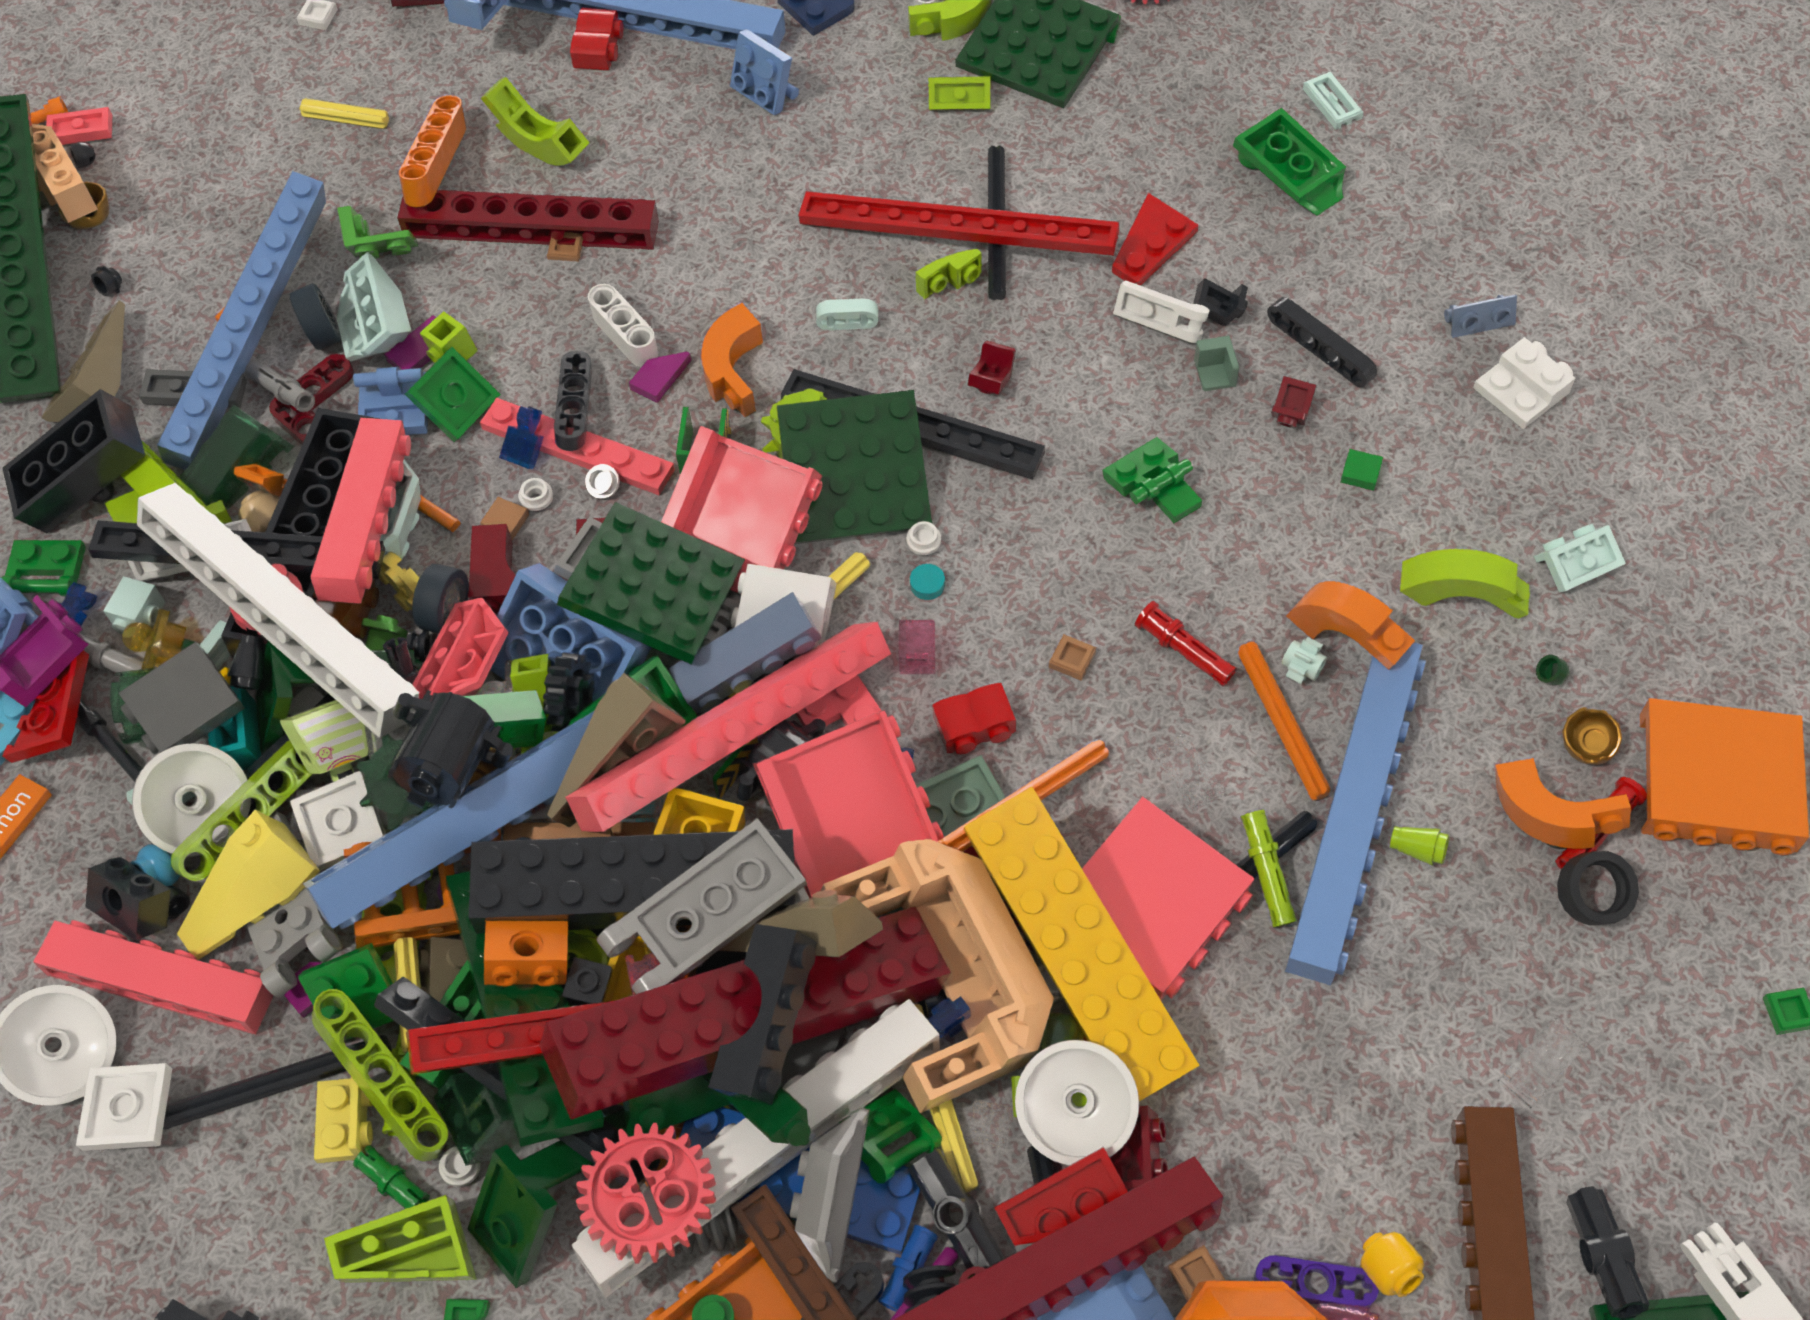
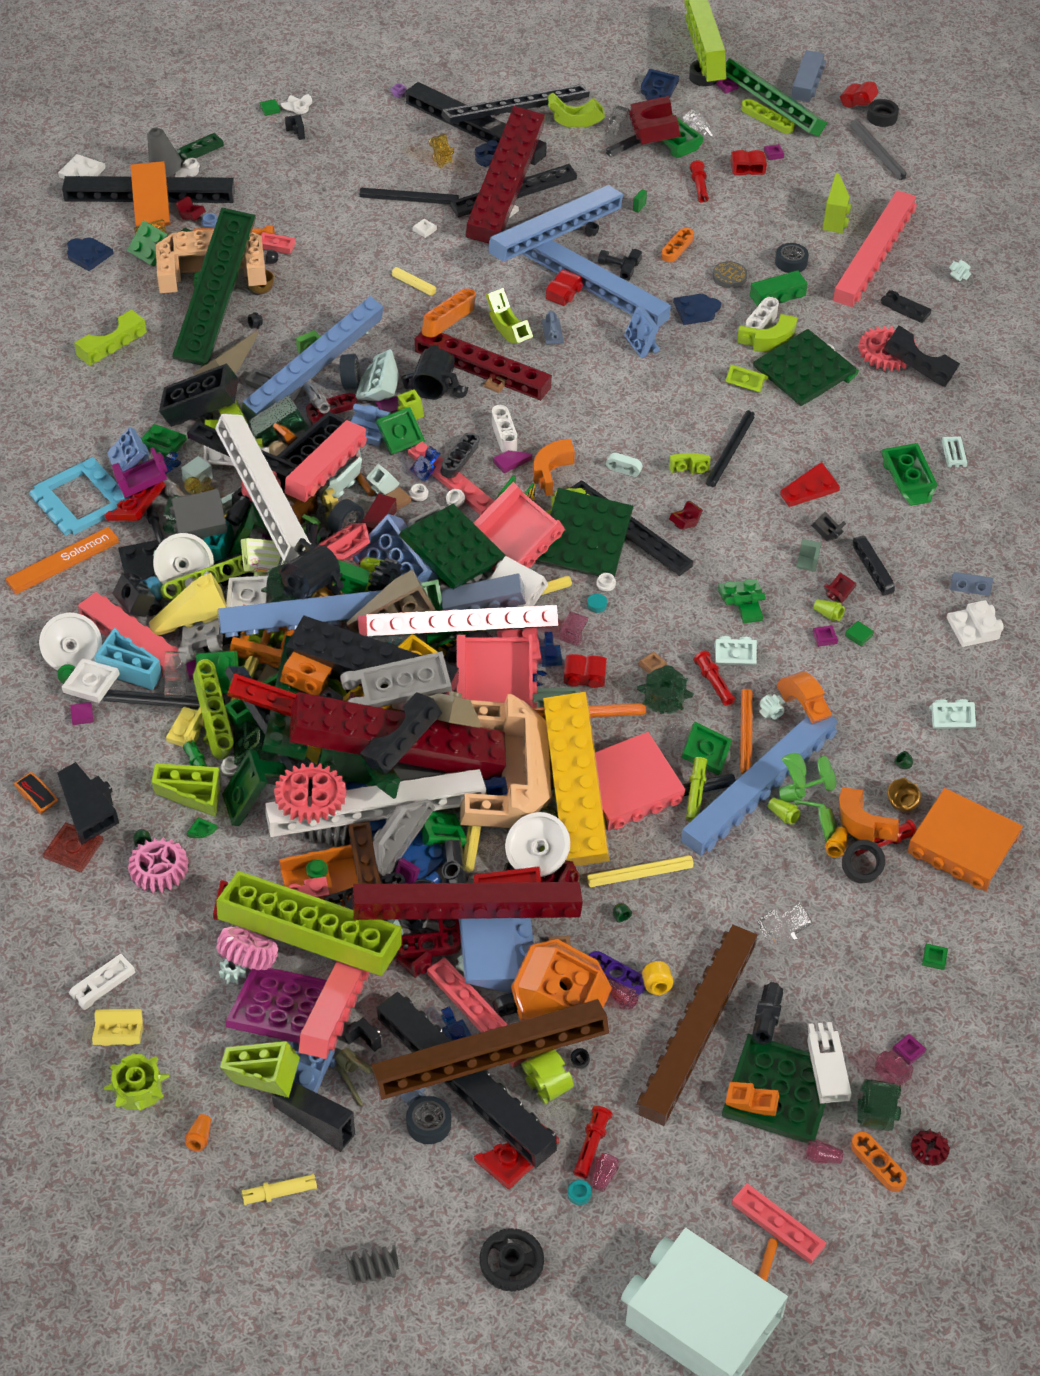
camera: 20 degrees right, 10 degrees down
(69, 1106) = (64, 672): none -> green plate
(104, 817) = (138, 558): none -> black plate
(135, 1174) = (82, 713): none -> magenta tile
(178, 1034) = (133, 663): none -> medium azure wedge
(217, 287) = (306, 340): none -> bright green bracket
(276, 1031) = (175, 674): none -> clear brick
(358, 238) = (389, 340): bright green bracket -> none
(458, 271) = (432, 374): none -> black container
(466, 499) = (382, 480): none -> light aqua brick
(515, 282) = (460, 391): none -> black hinge
(612, 117) = (552, 329): none -> sand blue hinge
(871, 1247) = (408, 870): none -> magenta tile
(900, 703) = (550, 653): none -> clear blue plate
(960, 223) = (708, 440): red plate -> none
(1122, 702) = (665, 690): none -> clear green brick
(1160, 311) = (792, 519): white plate -> none
(1193, 583) = (735, 651): none -> light aqua bracket
(1242, 781) = (707, 744): none -> green plate
(1251, 1062) = (640, 871): none -> light yellow axle
(1264, 1157) = (621, 912): none -> dark green hinge
(1296, 446) = (829, 609): none -> lime cone
(1312, 495) = (825, 635): none -> magenta tile
(1426, 802) = (795, 791): none -> bright green plant
(1465, 573) = (883, 697): lime arch -> none
(1534, 868) = (837, 843): none -> light orange cone

